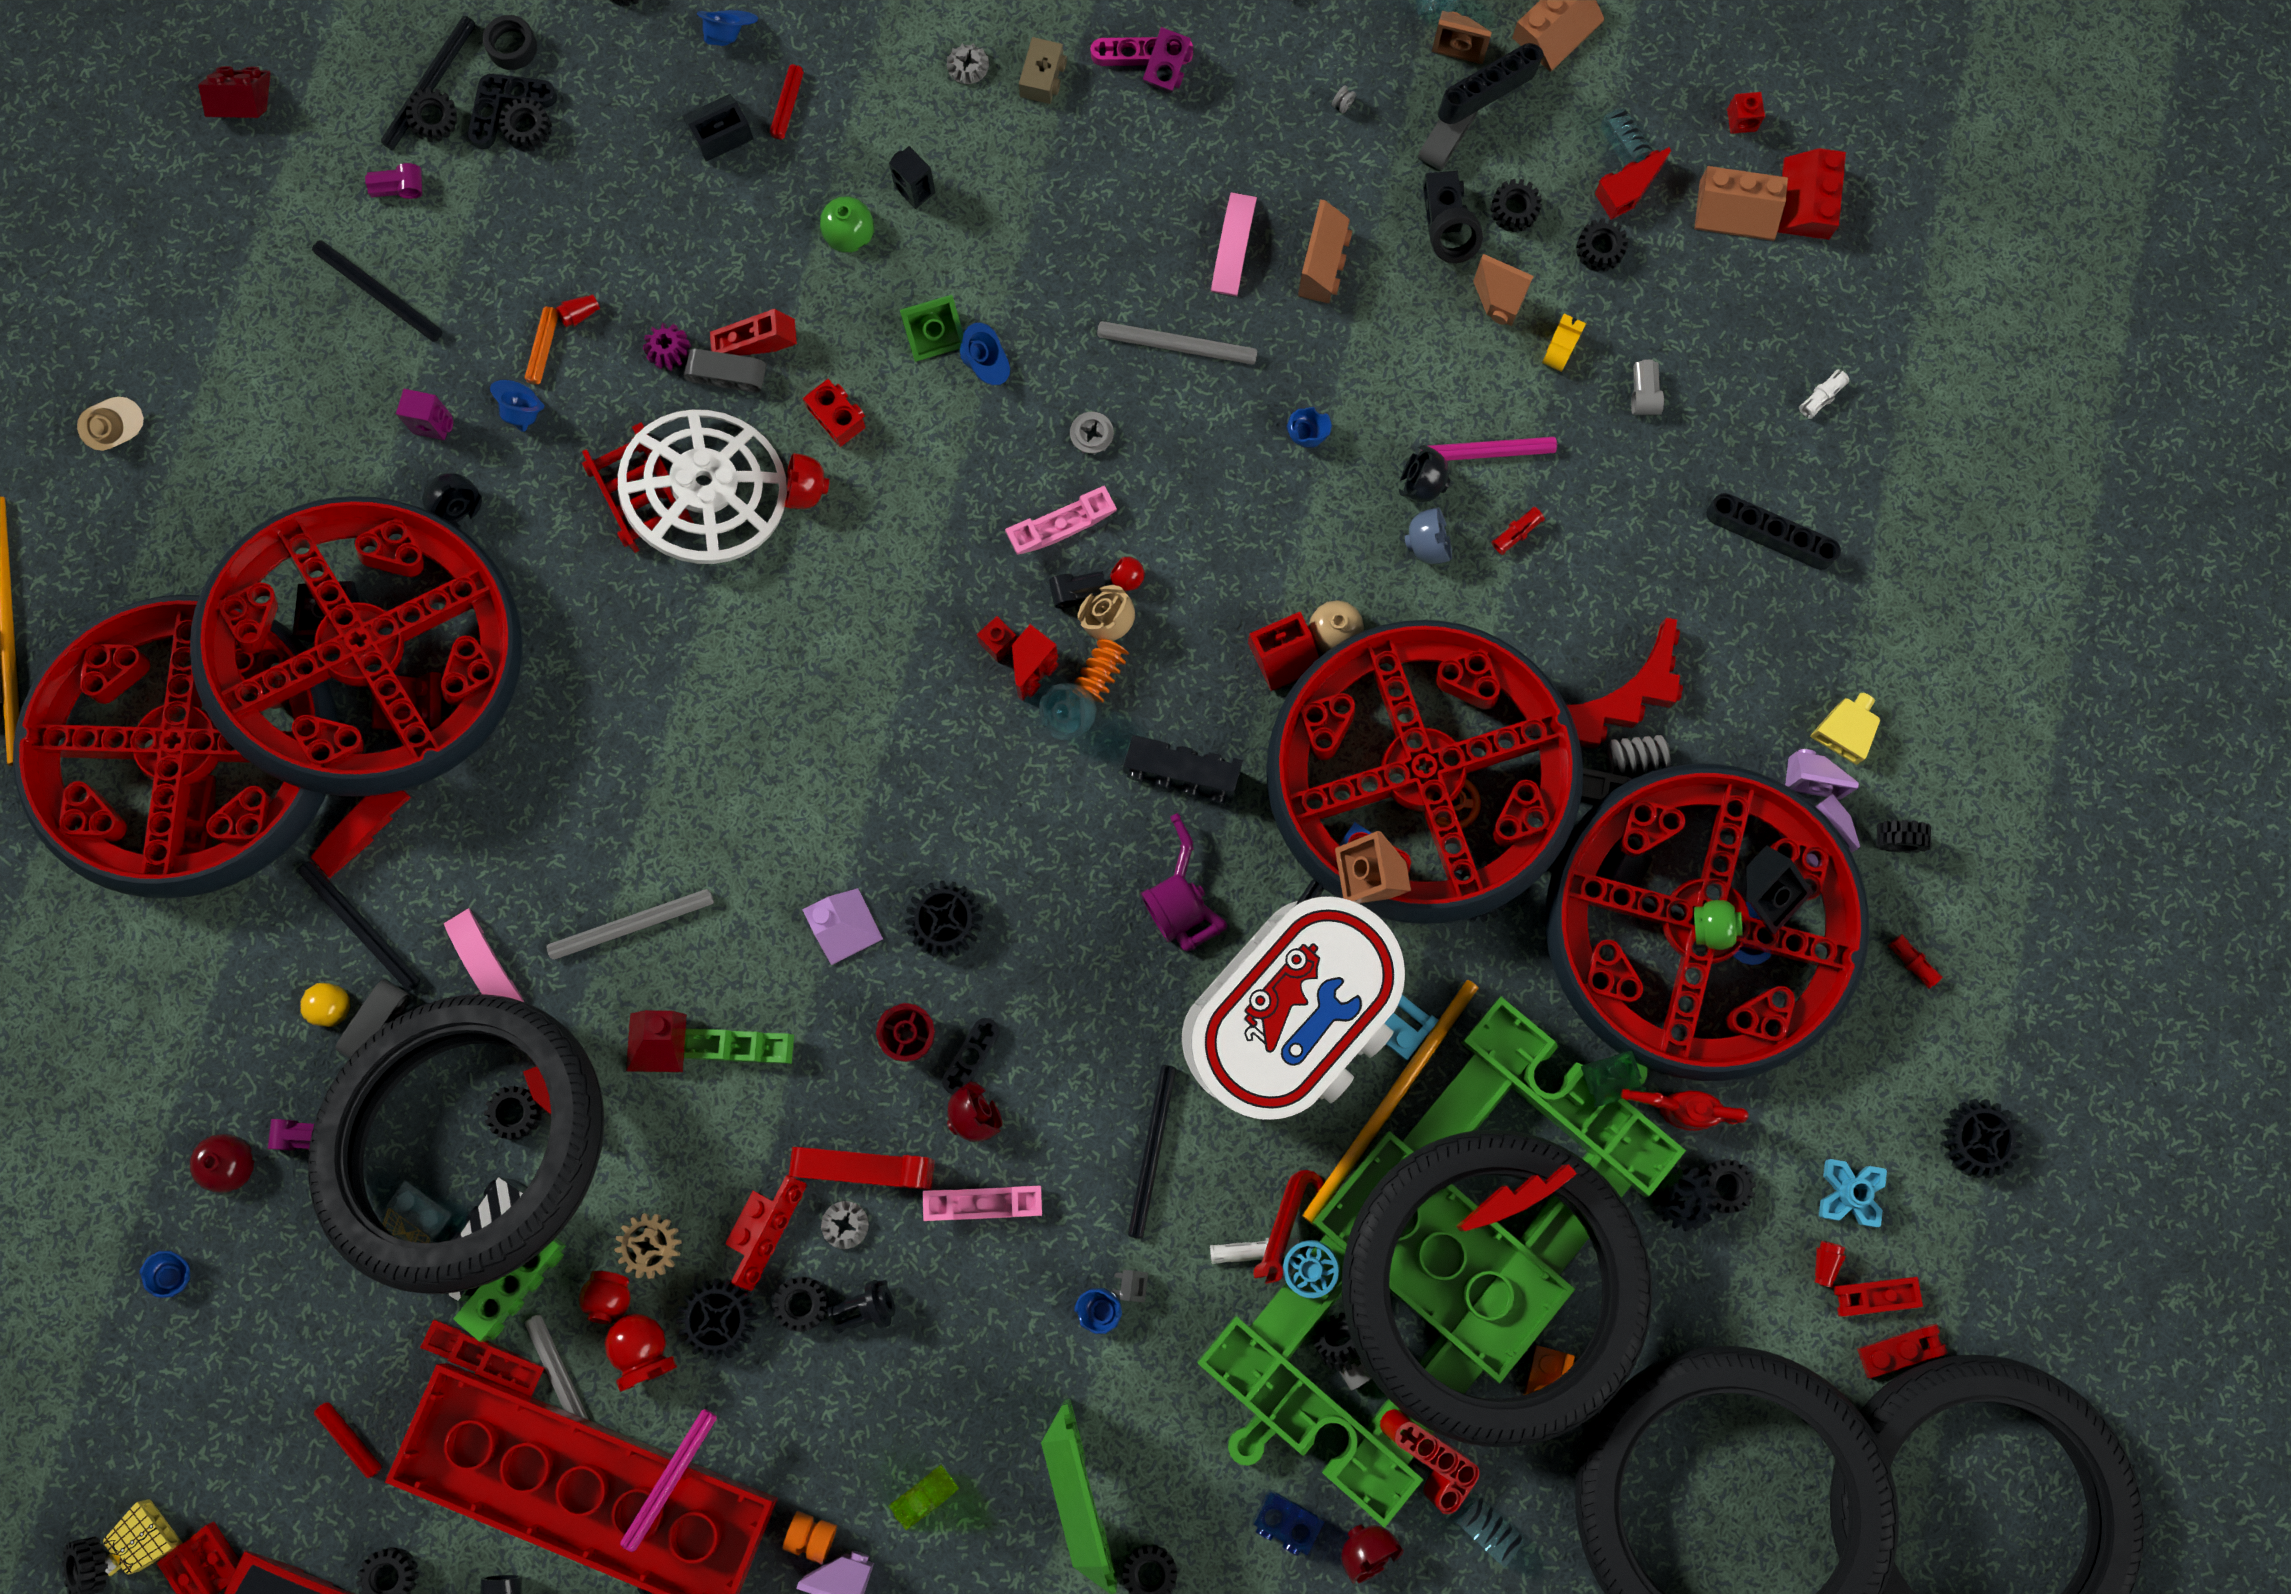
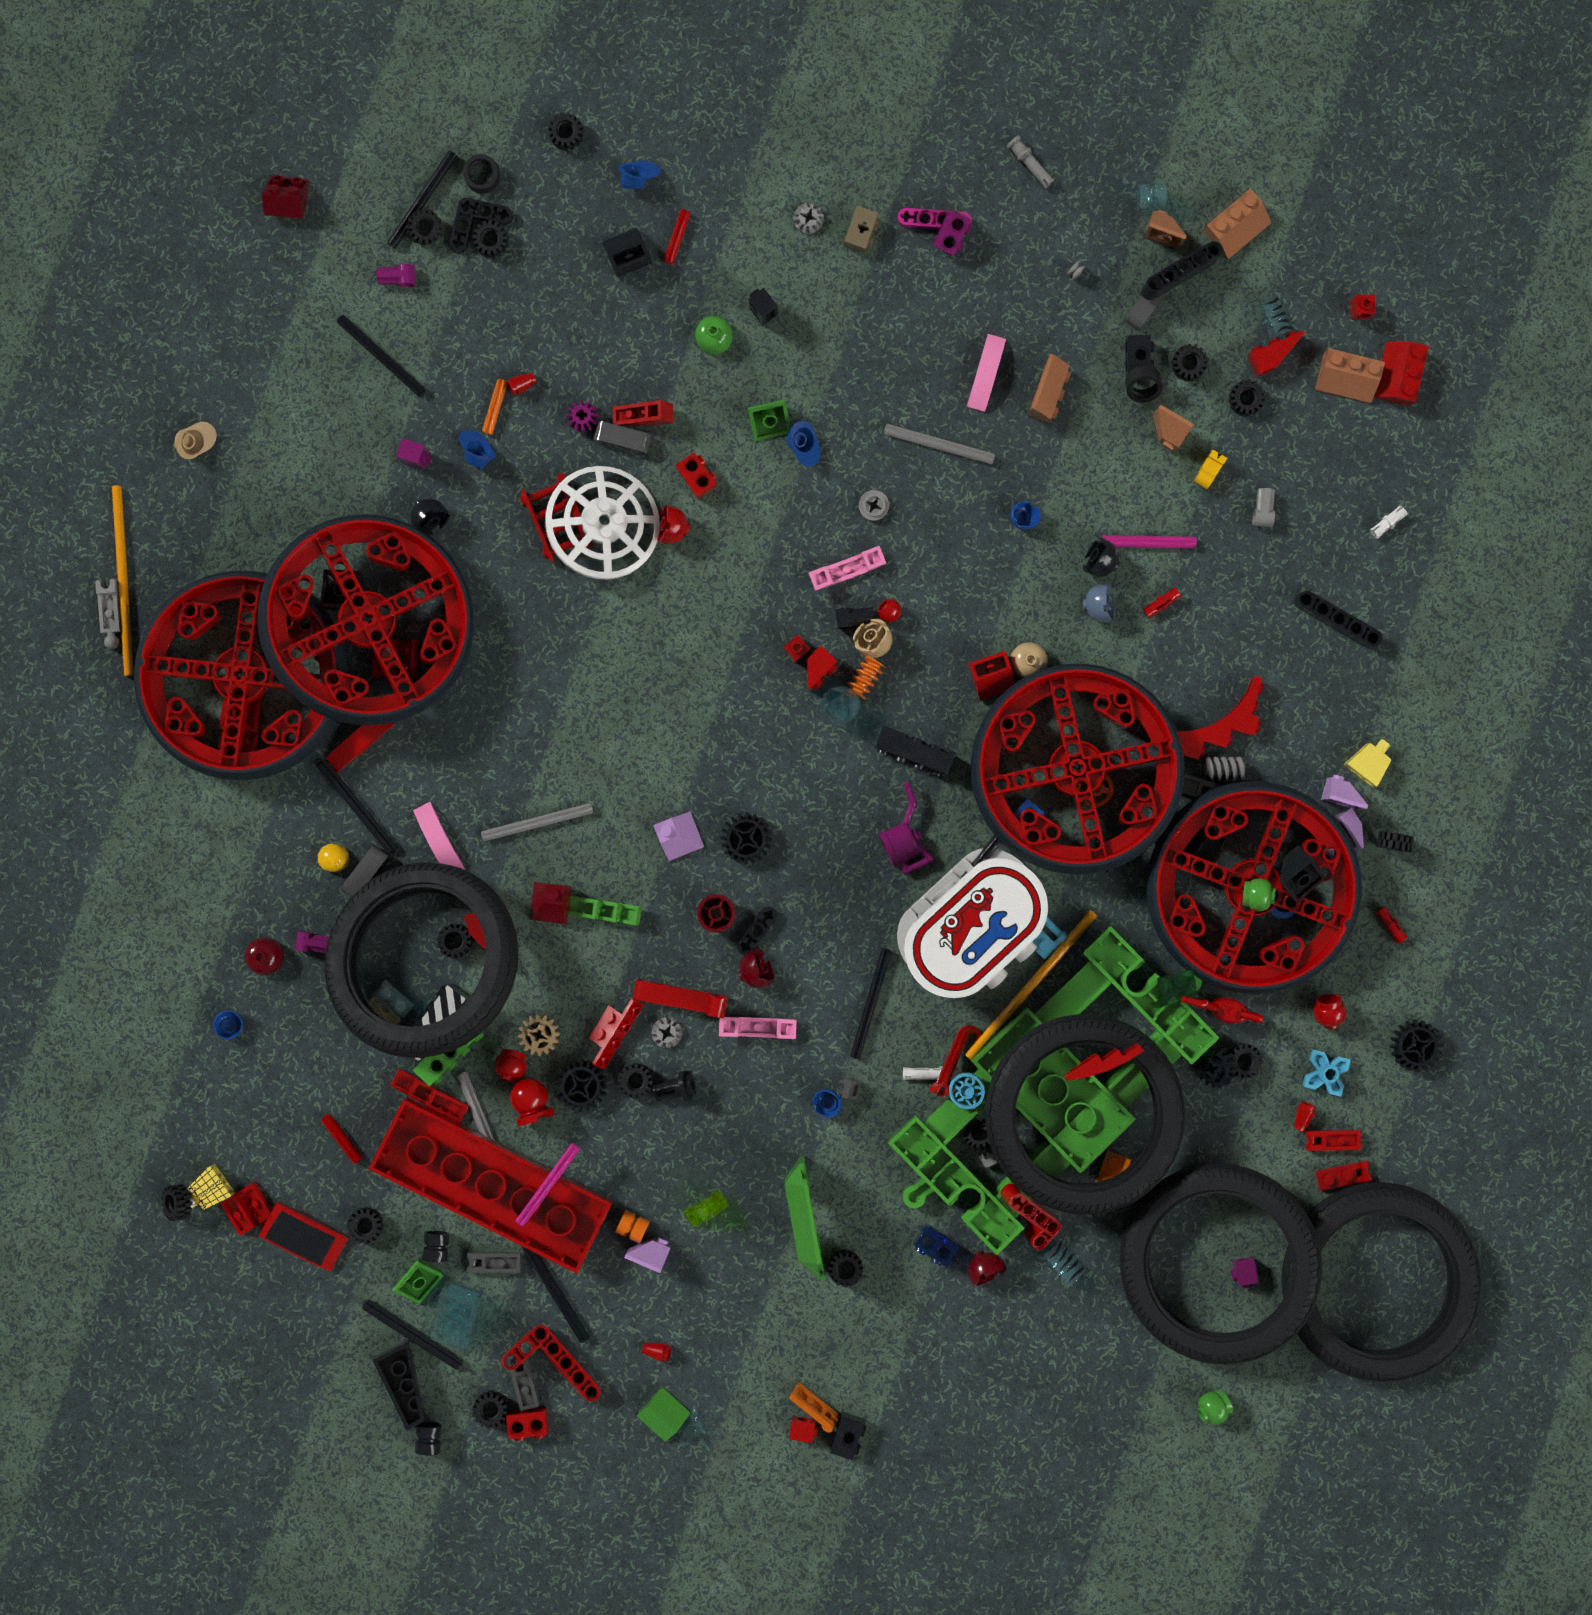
camera: 15 degrees right, 10 degrees up
(1371, 869) = (1033, 838): nougat slope -> none
(1772, 1520) = (1244, 1272): none -> magenta brick
(1844, 1097) = (1329, 1011): none -> red piece

